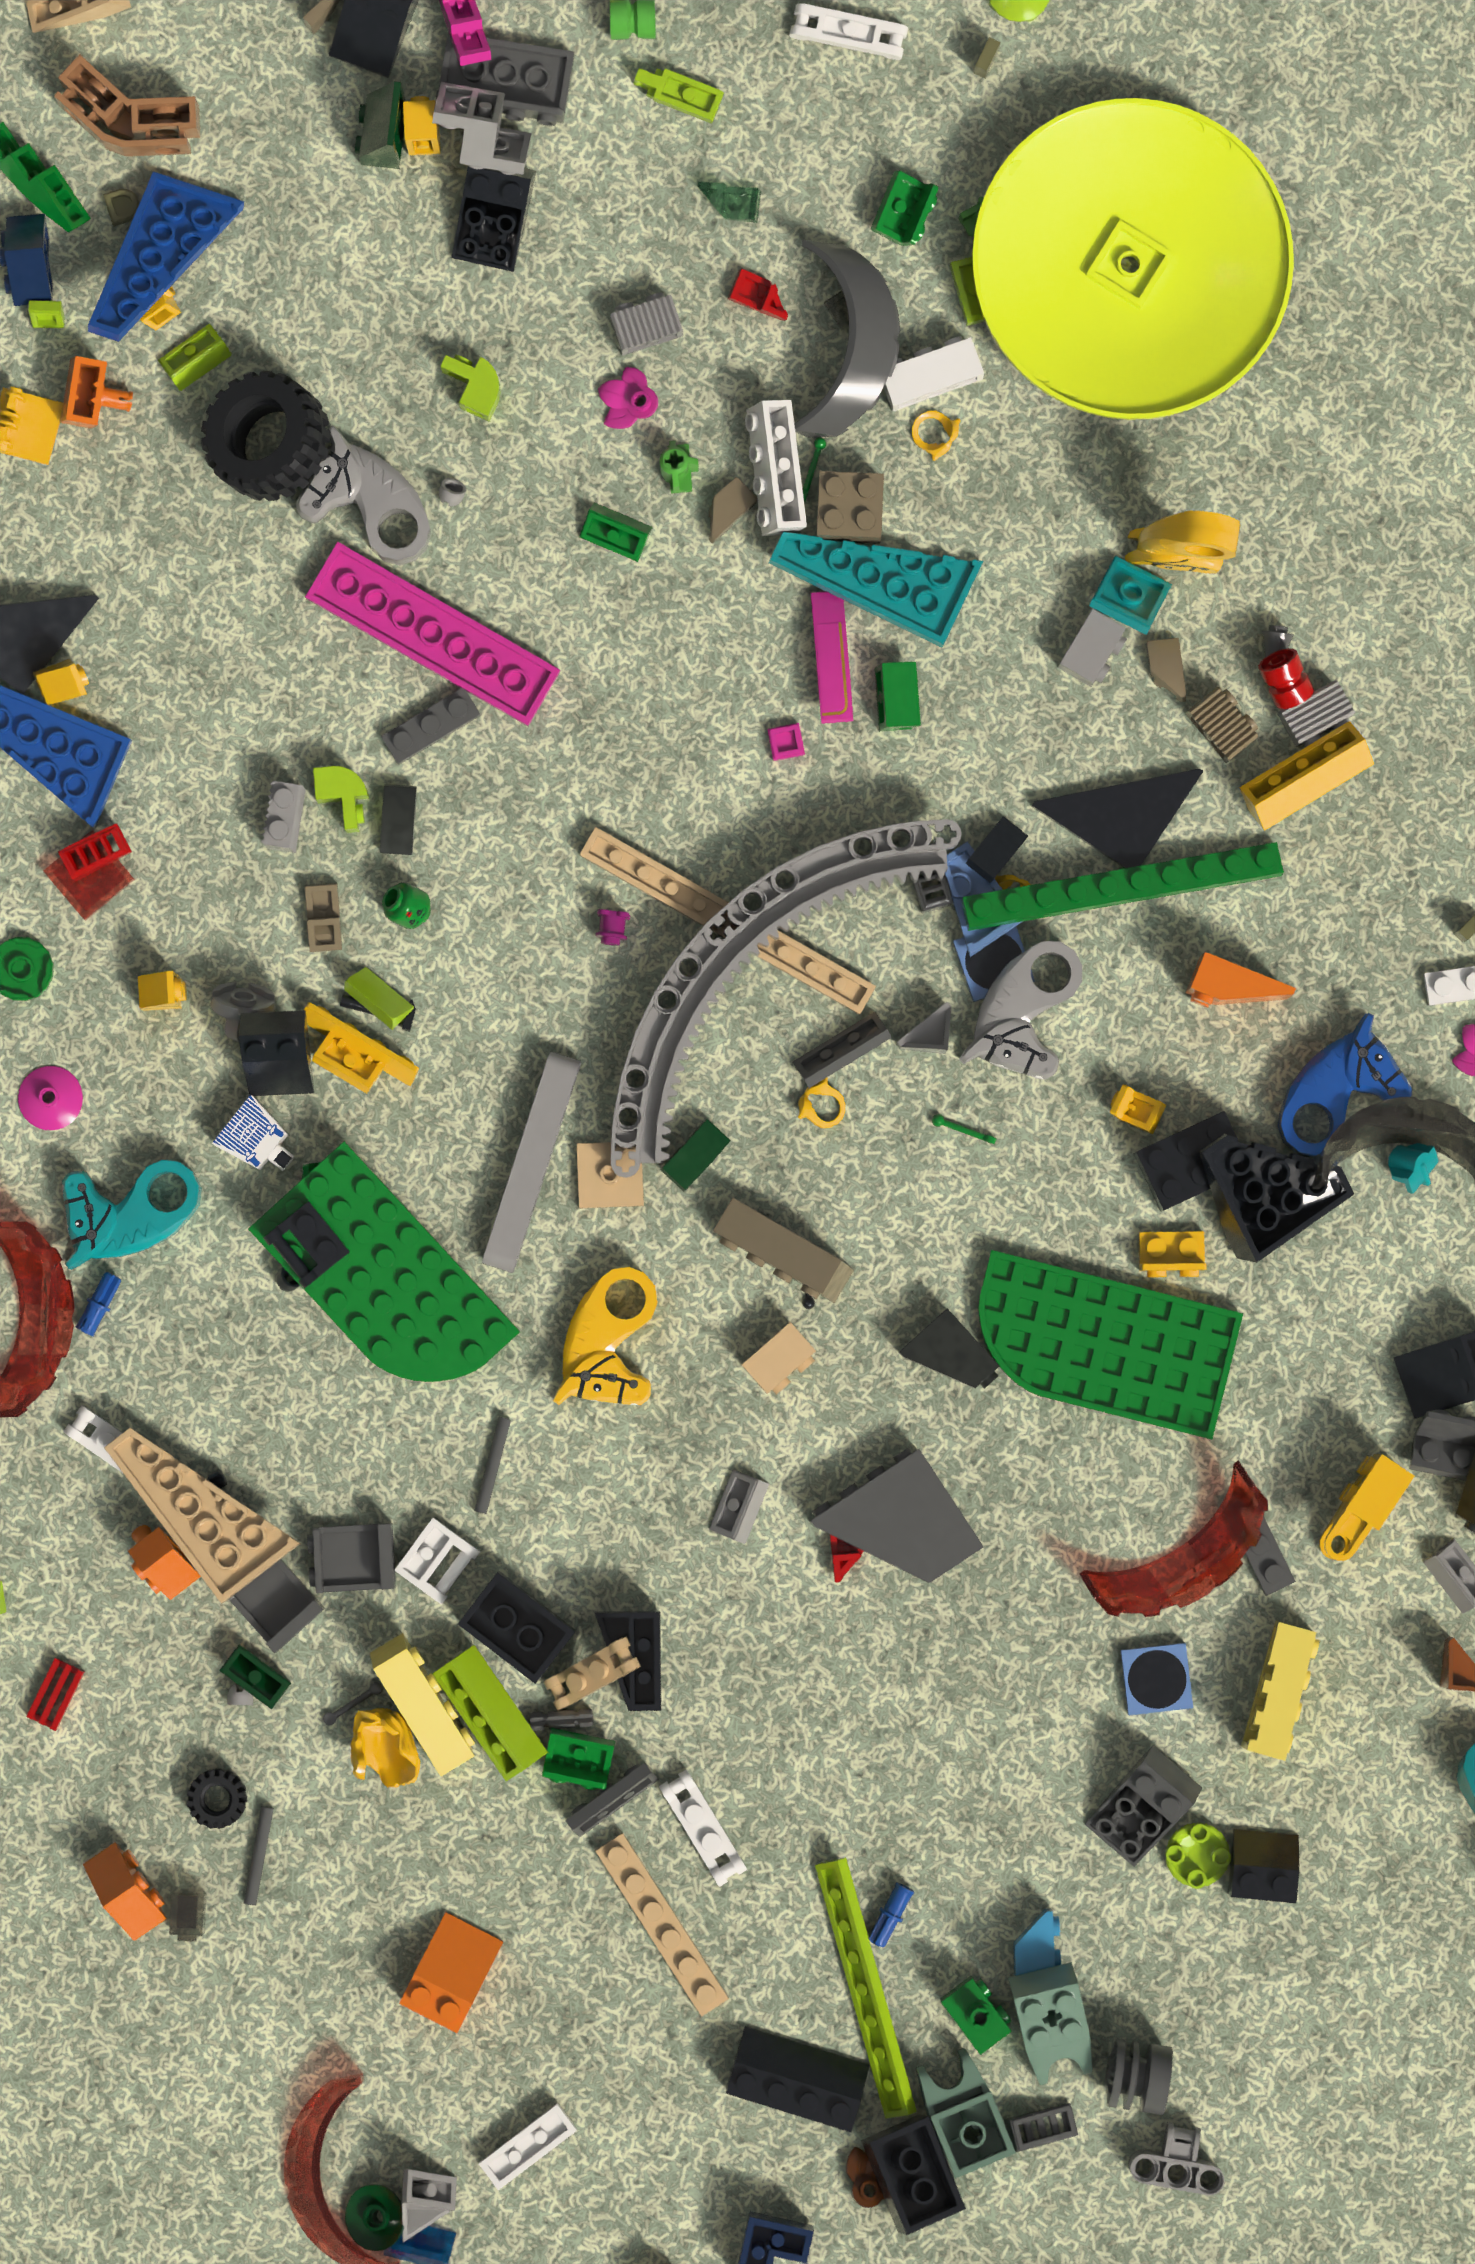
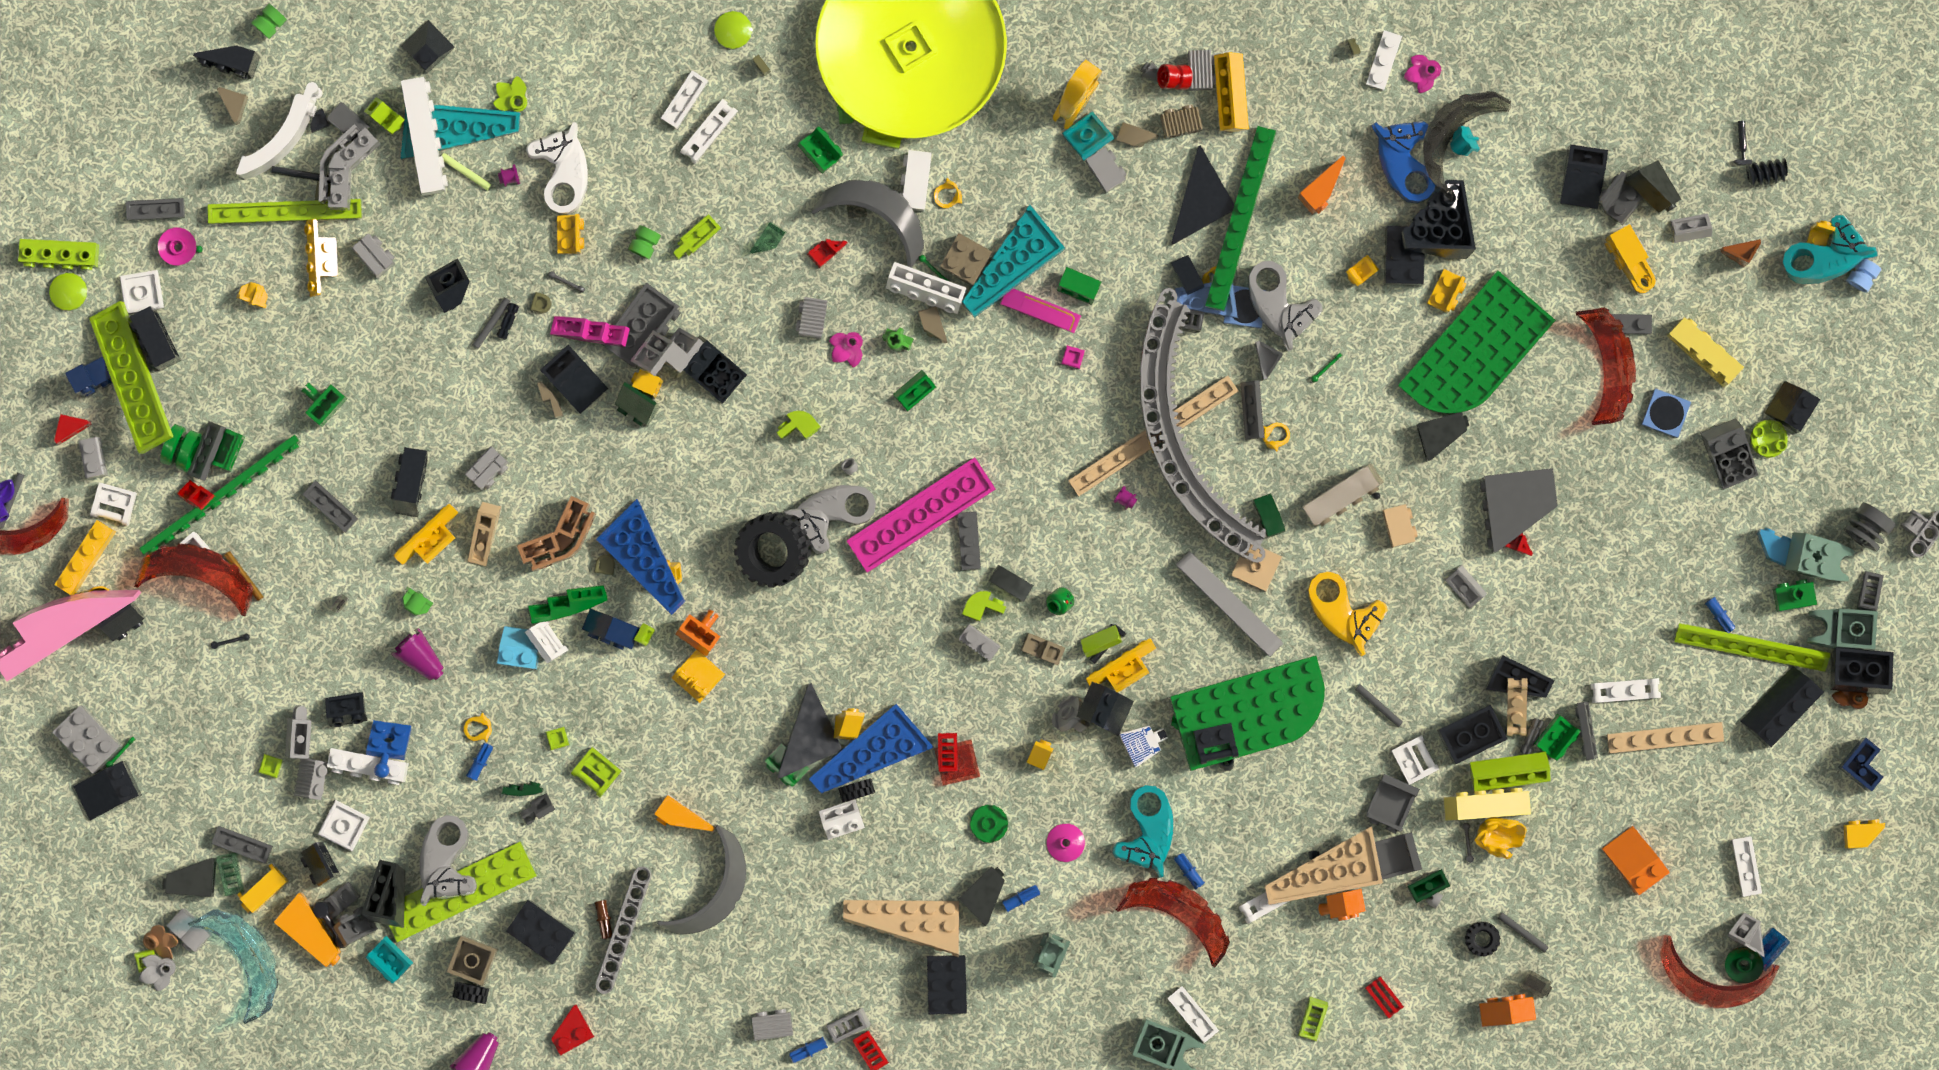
camera: 65 degrees left, 0 degrees up
(195, 357) = (706, 567): lime slope -> none

